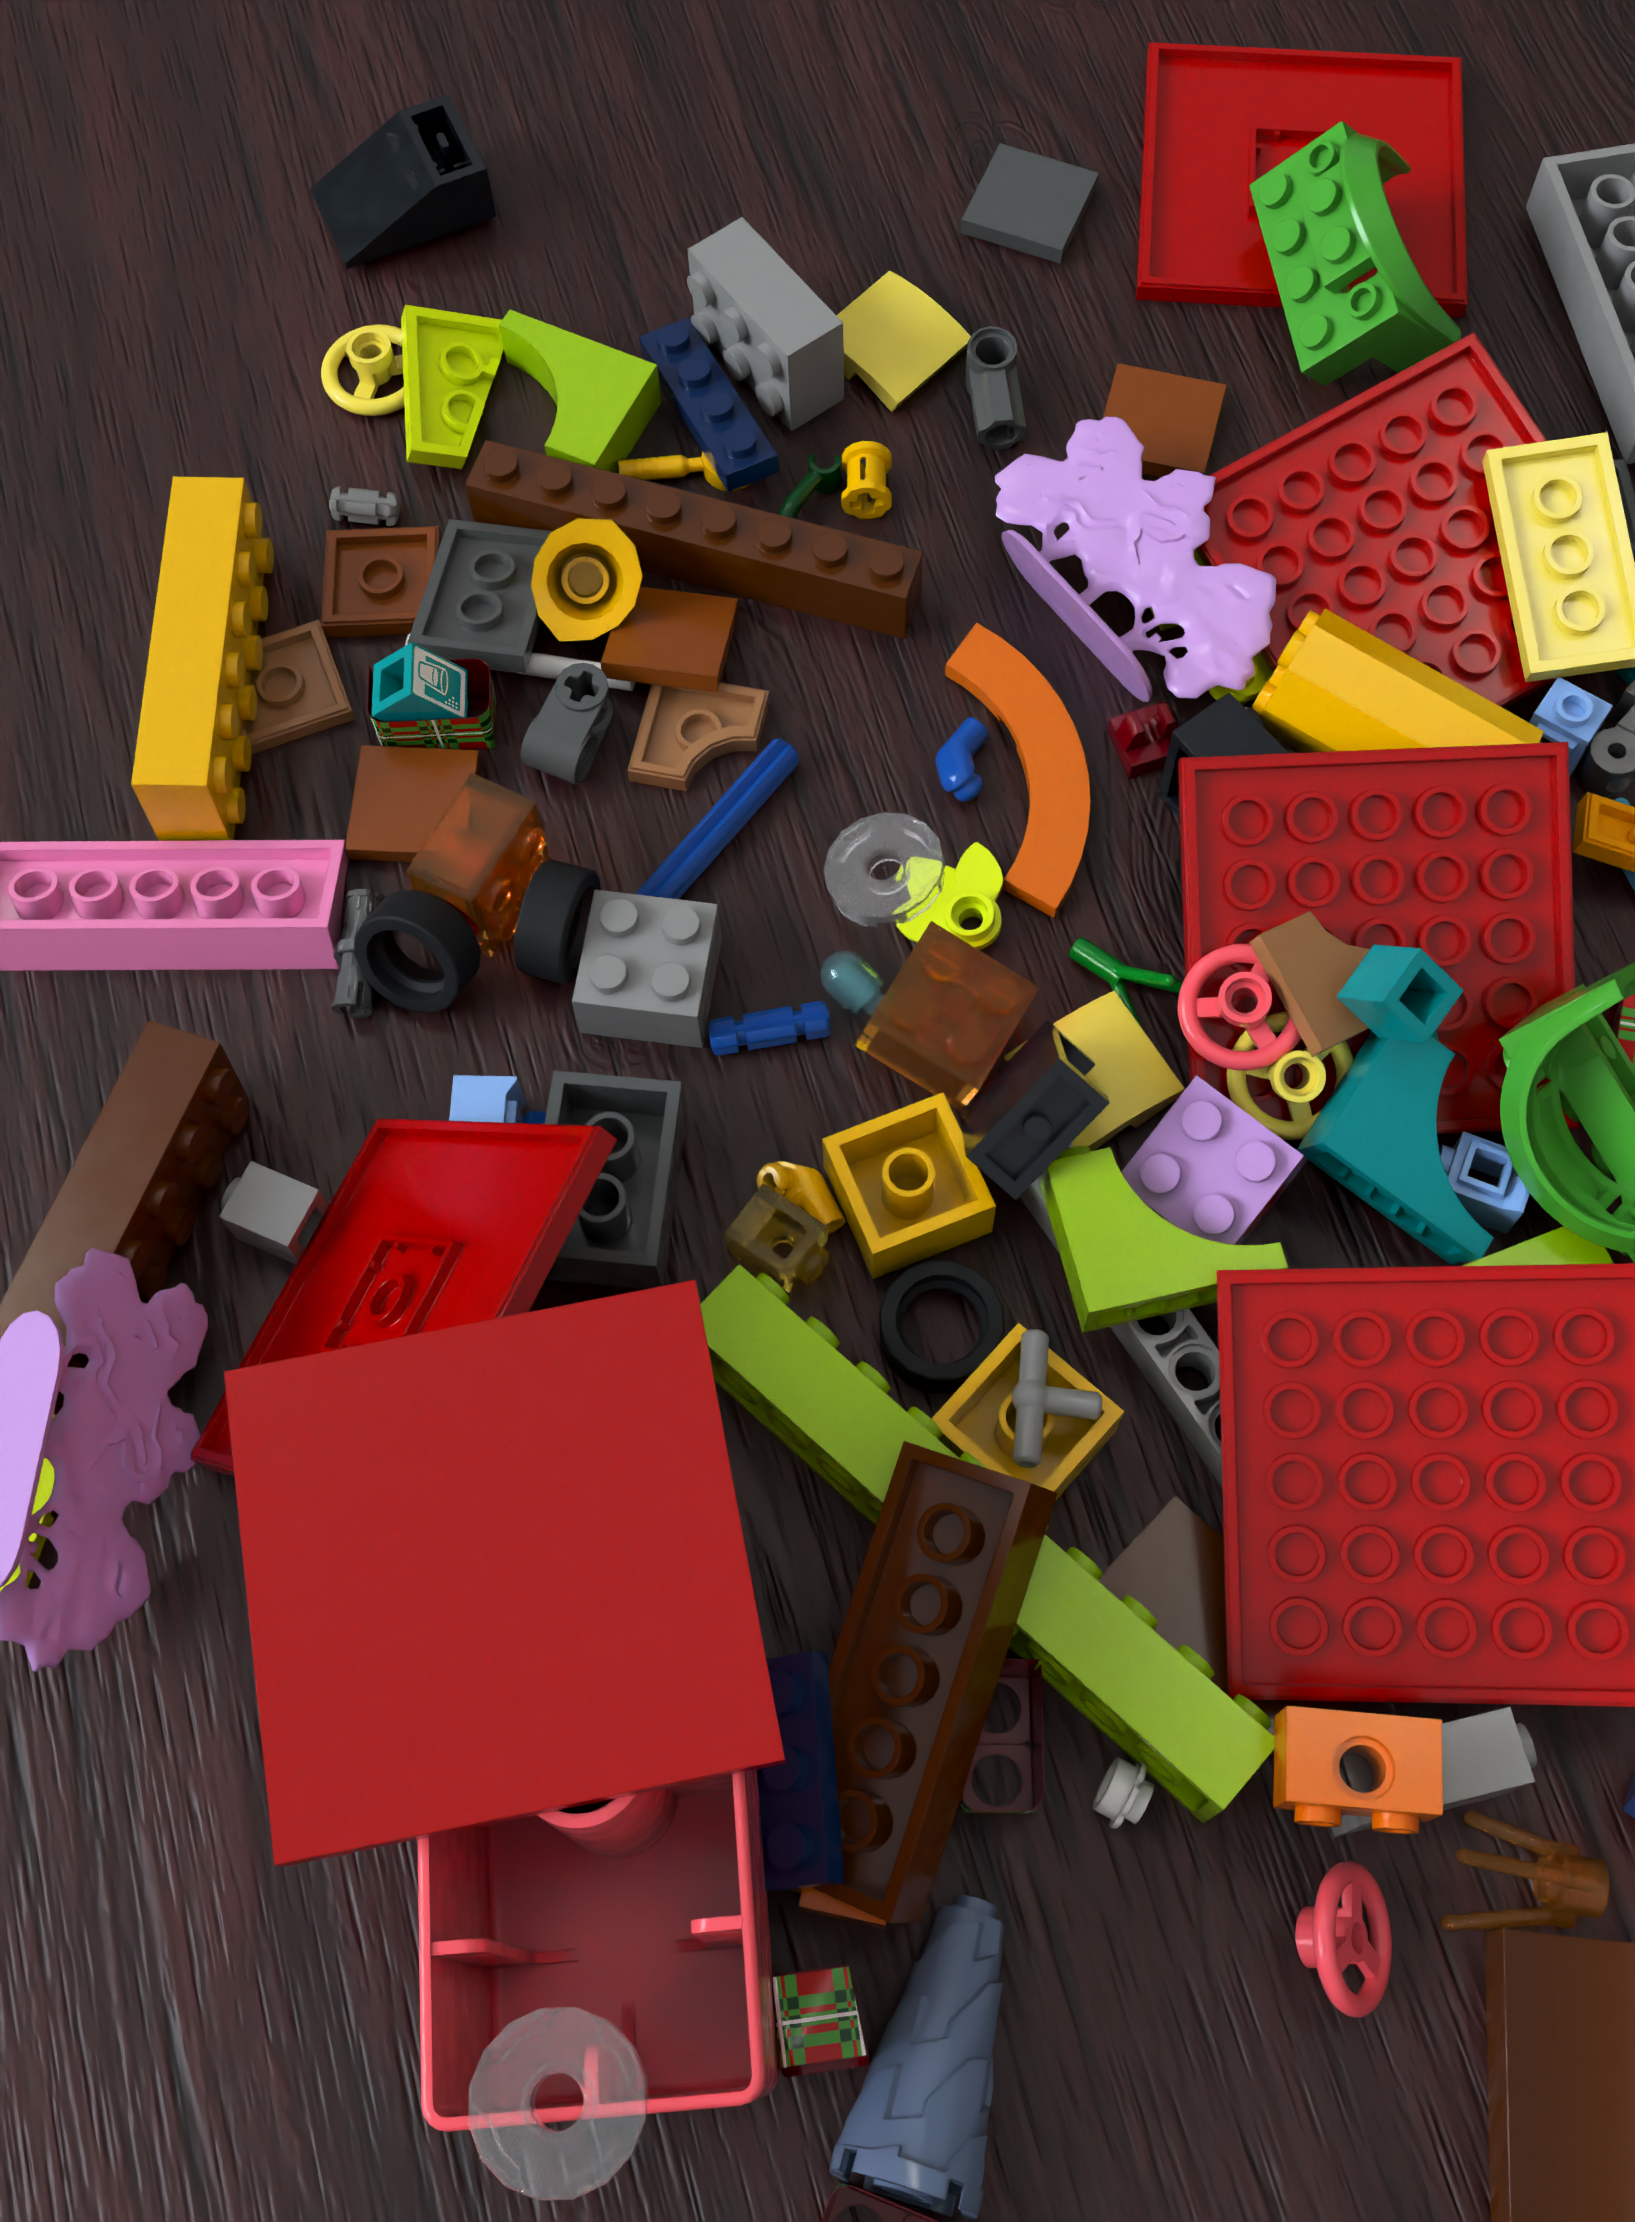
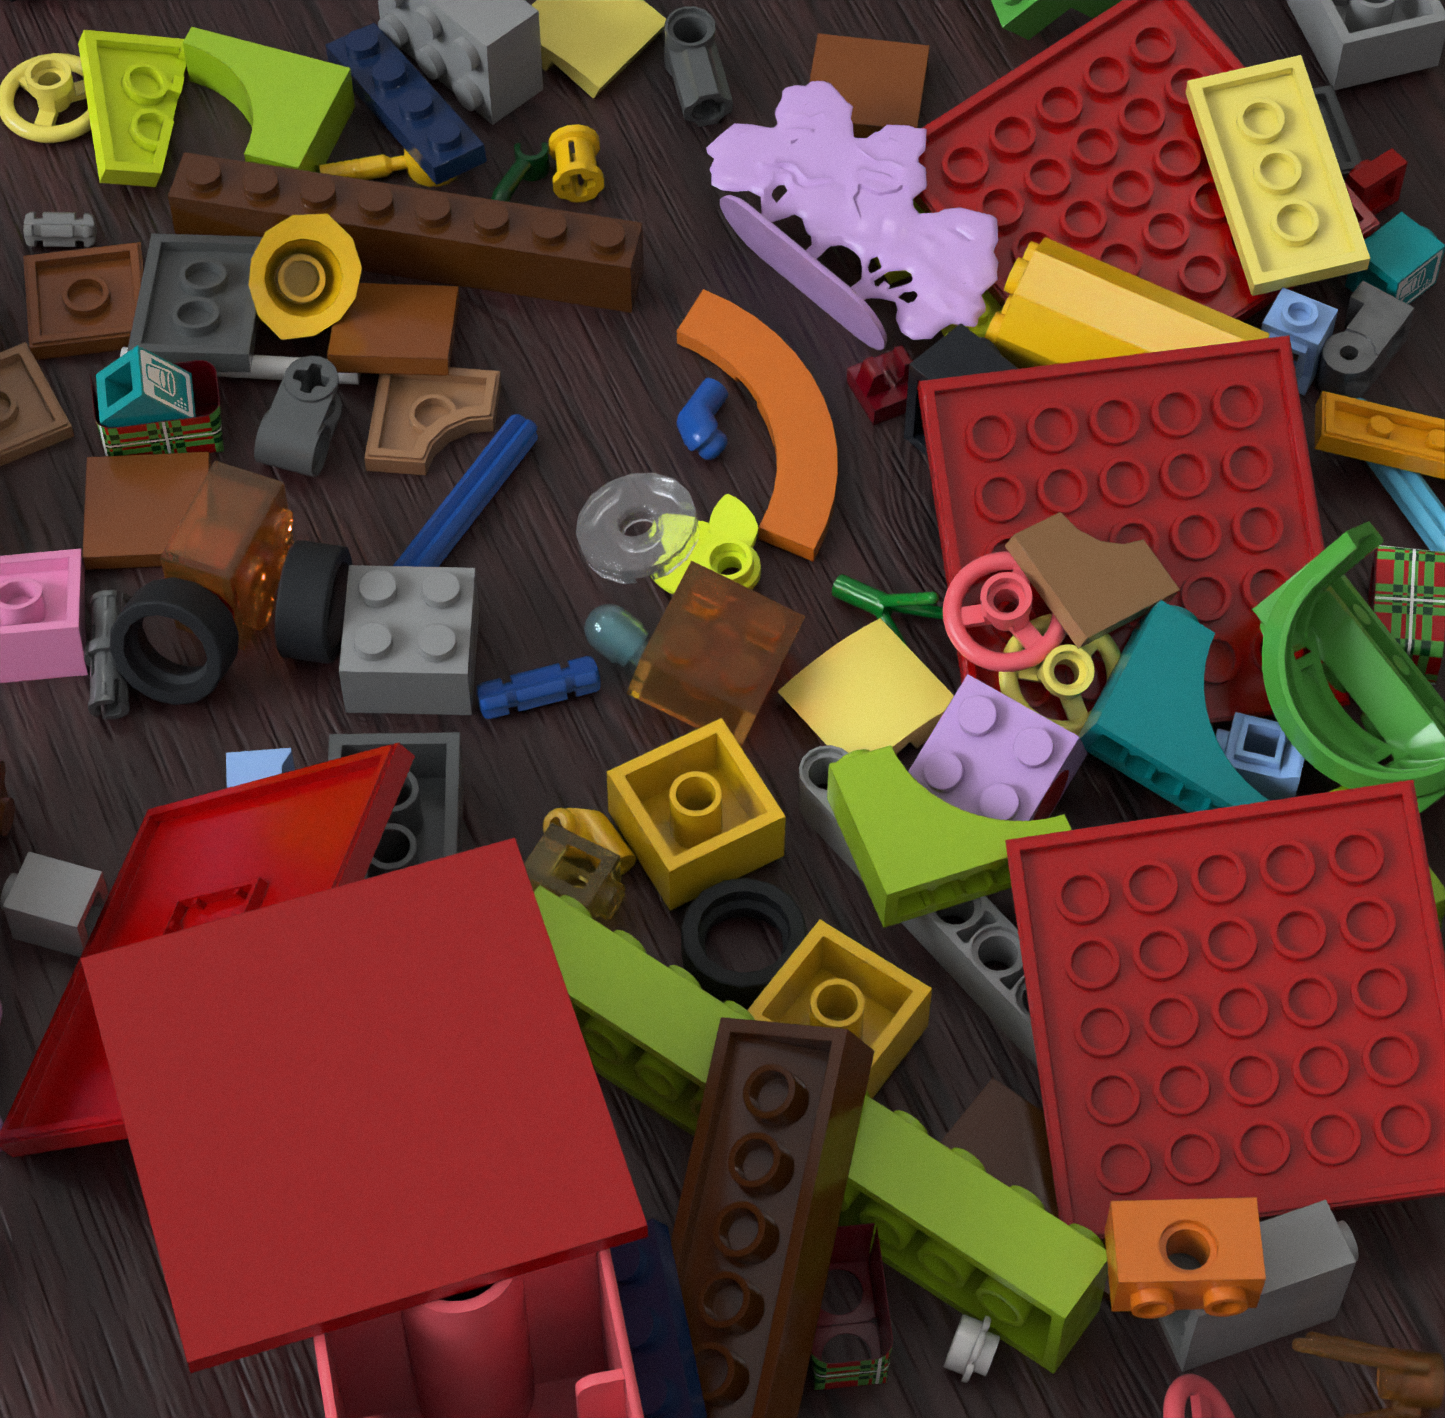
camera: 10 degrees left, 10 degrees down
(1031, 1110) = (810, 721): black panel -> none
(1035, 1399) = (843, 981): light grey piece -> none
(1400, 993) = (1152, 574): teal brick -> none

